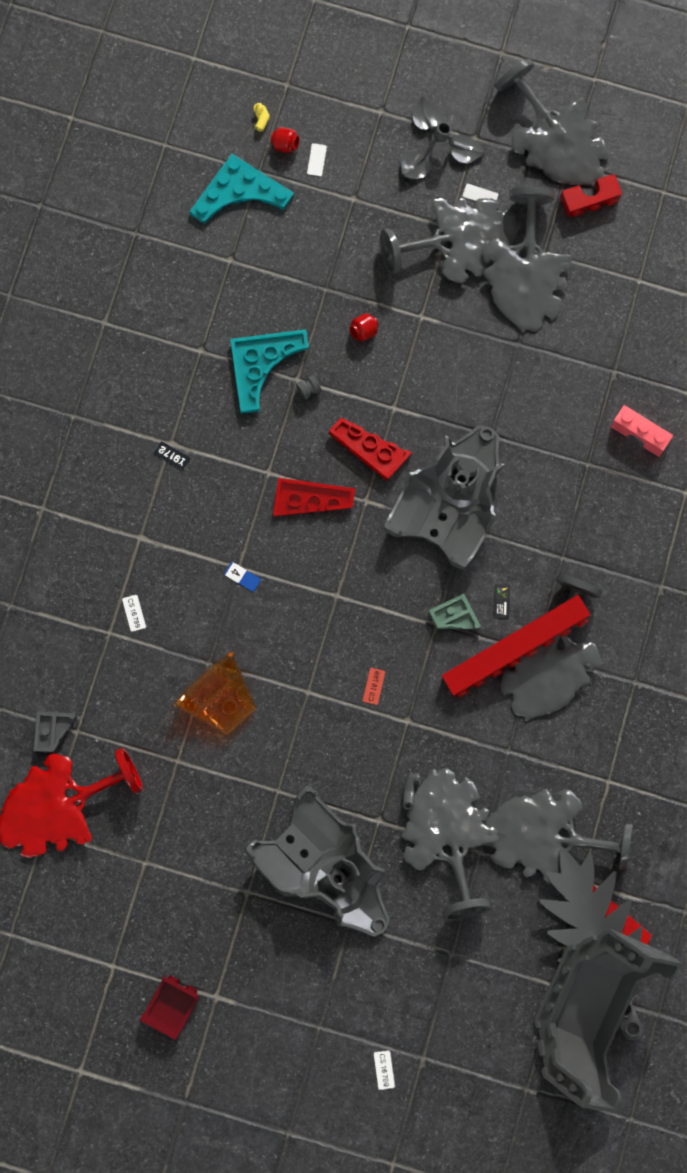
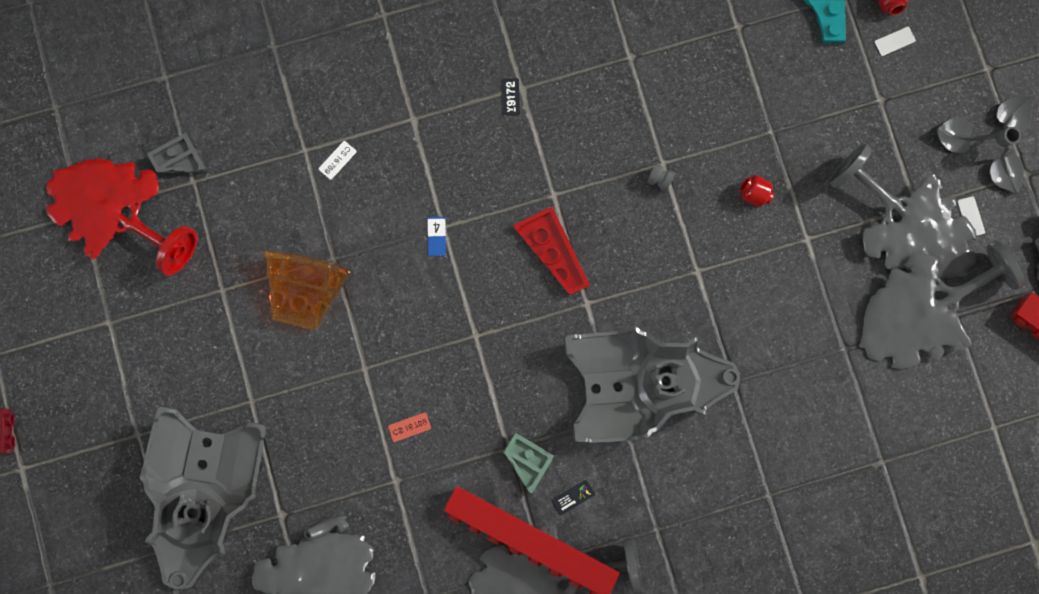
camera: 65 degrees right, 5 degrees up
(255, 359) = (656, 111): teal plate -> none
(376, 453) = (639, 281): red wing -> none
(632, 423) = (840, 539): coral arch -> none

